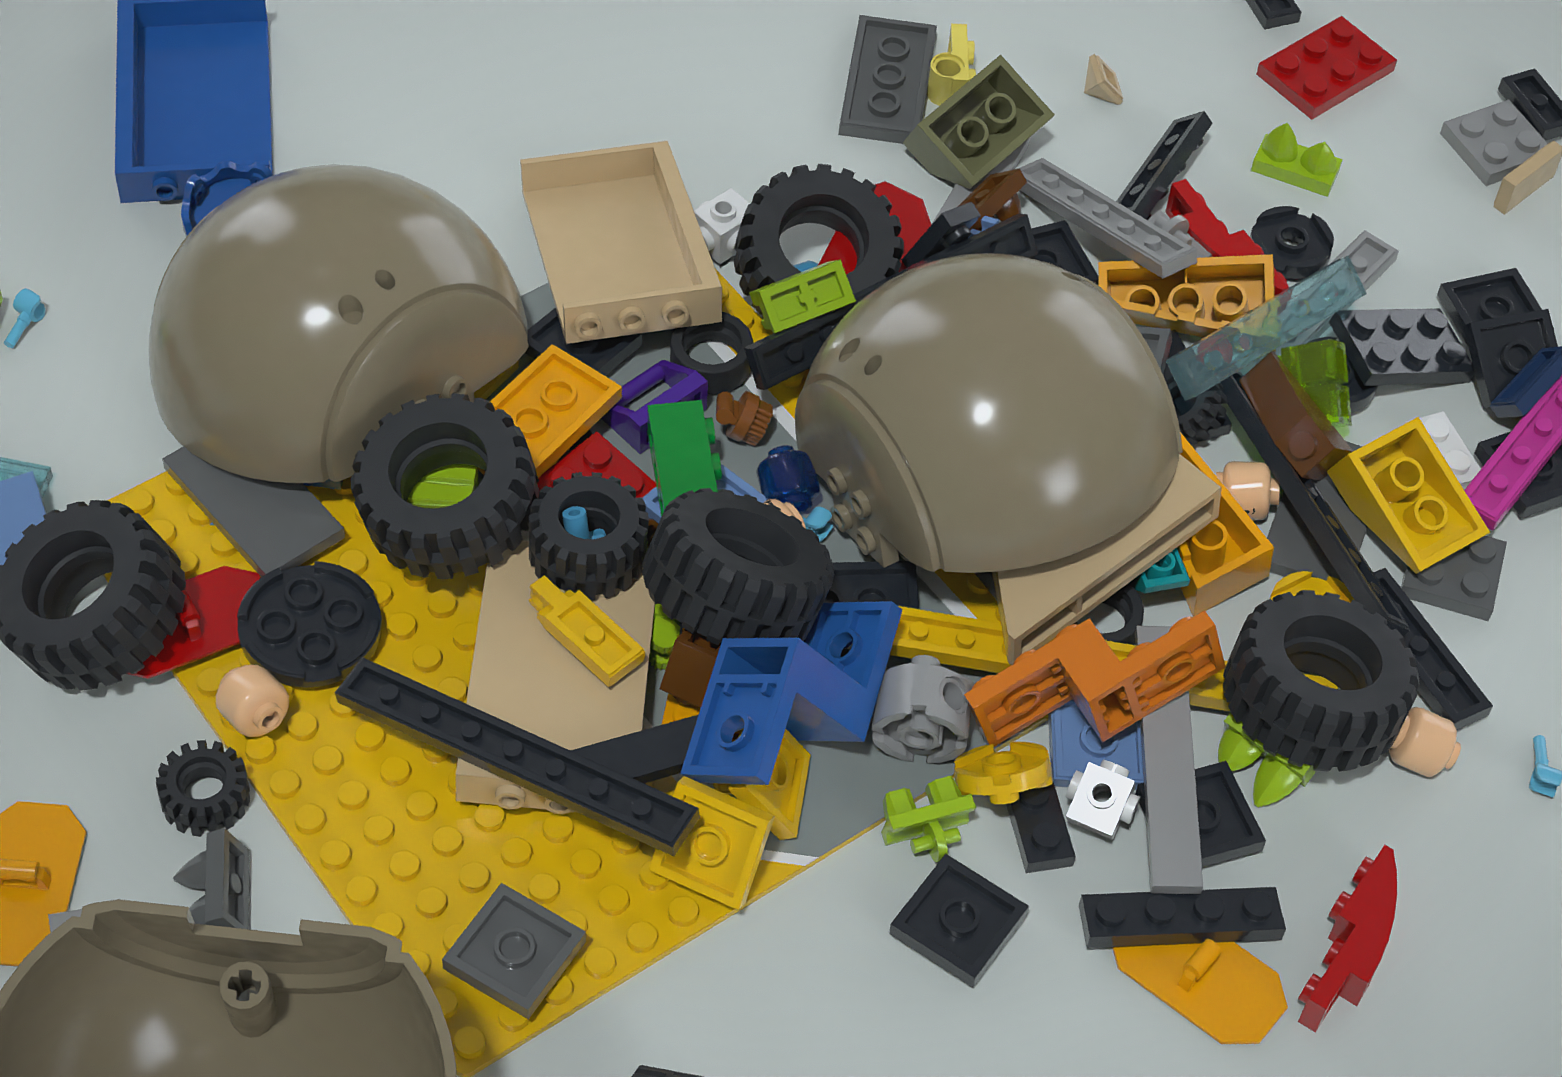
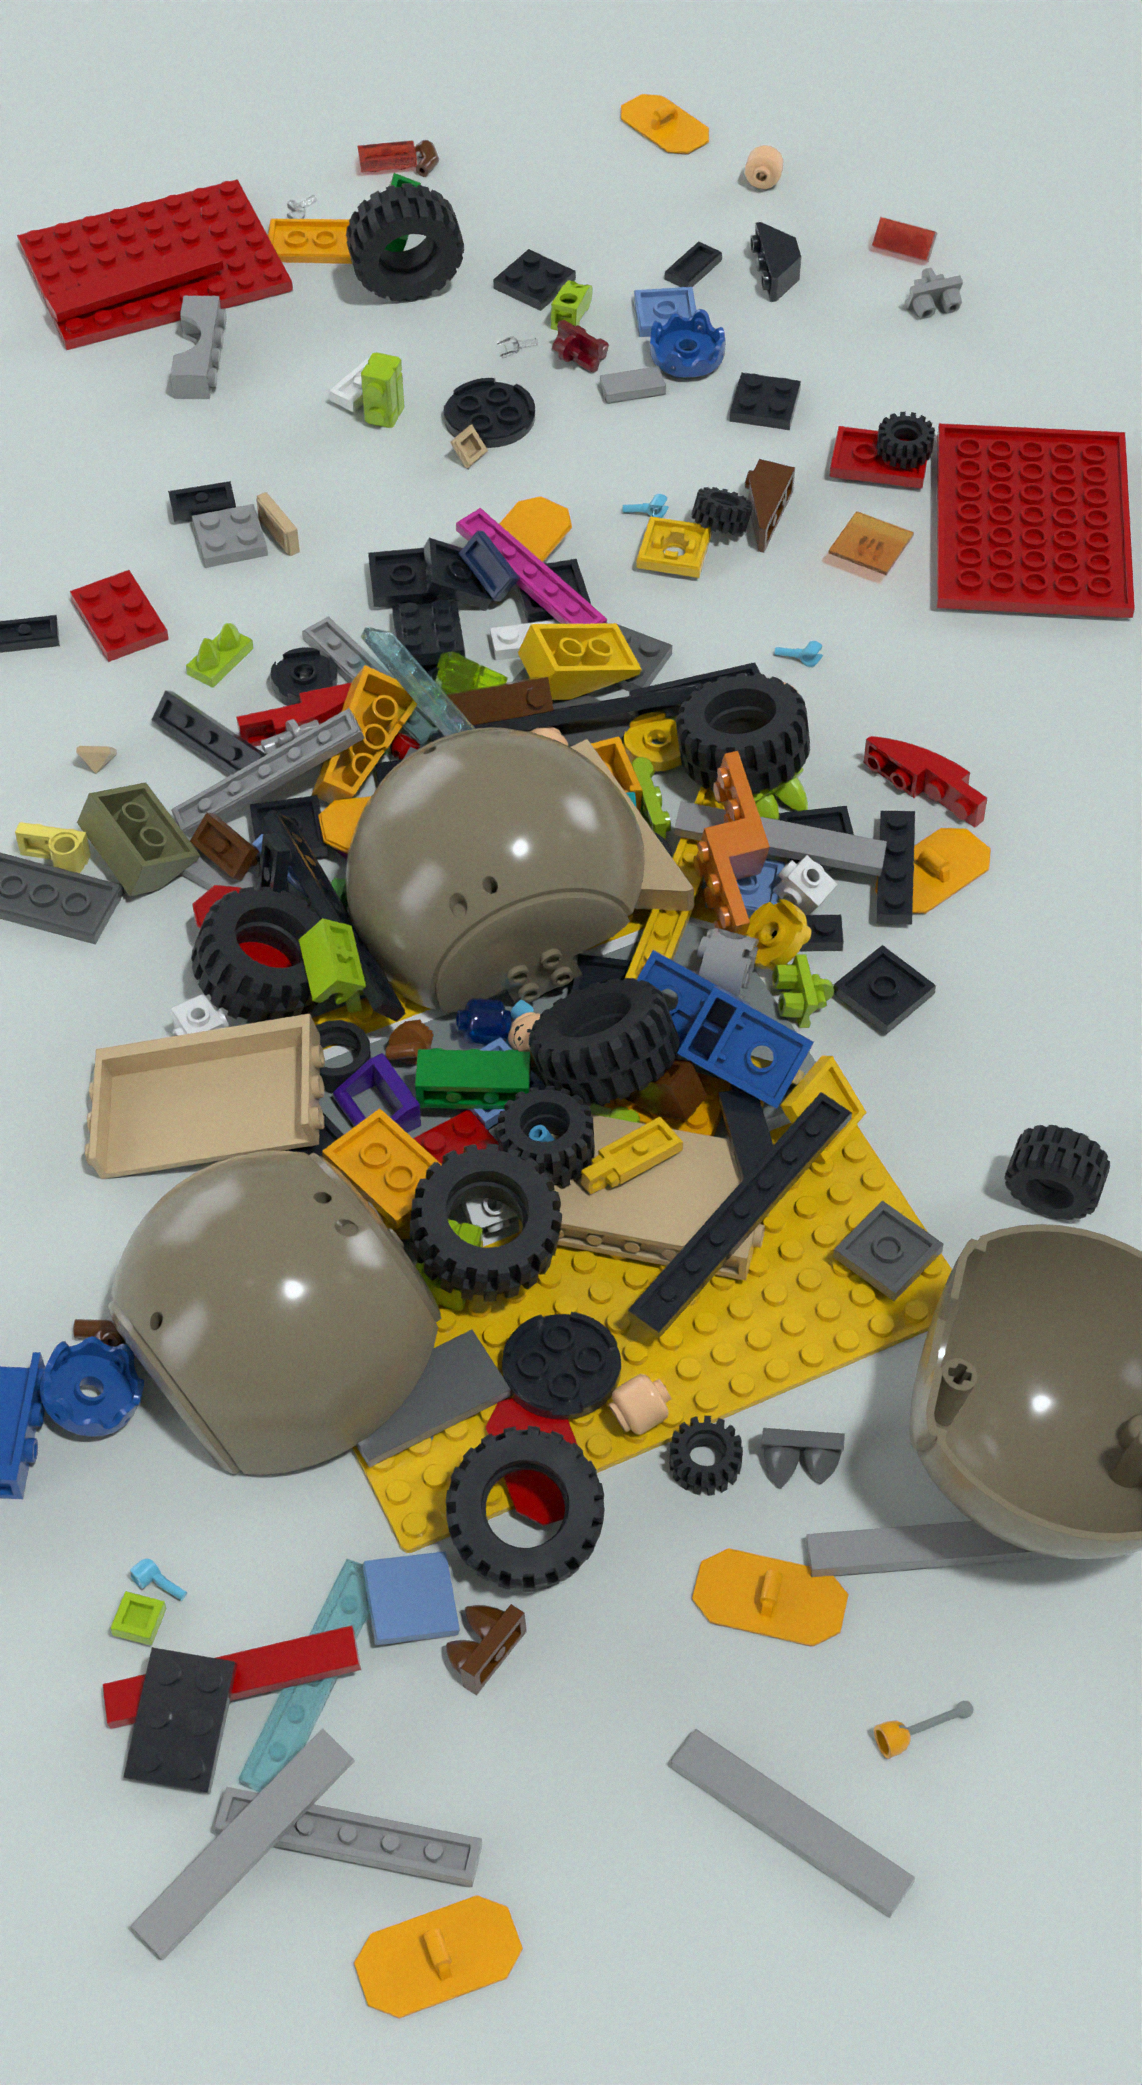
camera: 75 degrees left, 0 degrees up
(1223, 605) = (651, 798): none -> lime hinge

